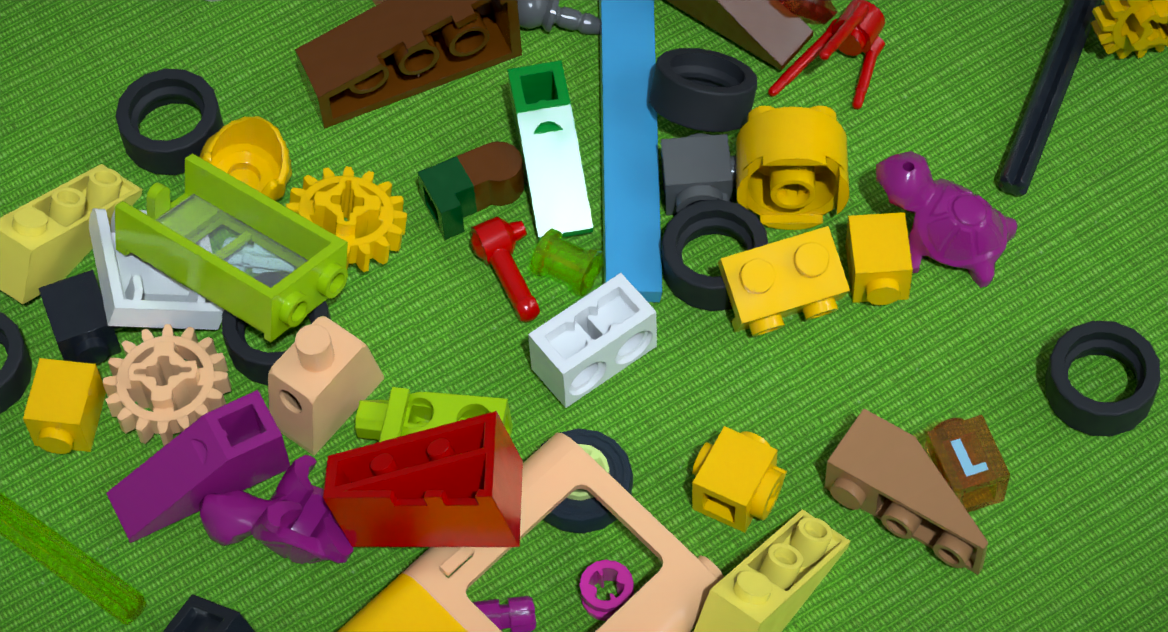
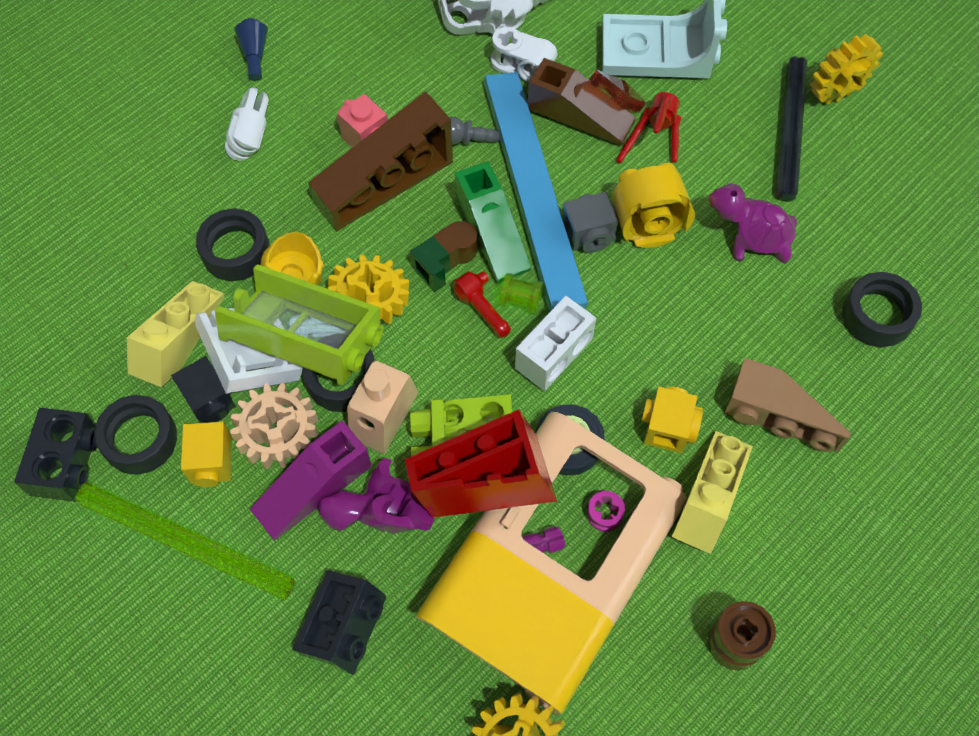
camera: 15 degrees left, 5 degrees up
(703, 89) = (581, 165): black tyre -> none
(706, 219) = (622, 248): black tyre -> none
(784, 280) = (667, 280): yellow bracket -> none
(878, 258) = (720, 256): yellow brick -> none
(969, 461) = (818, 377): clear orange brick -> none

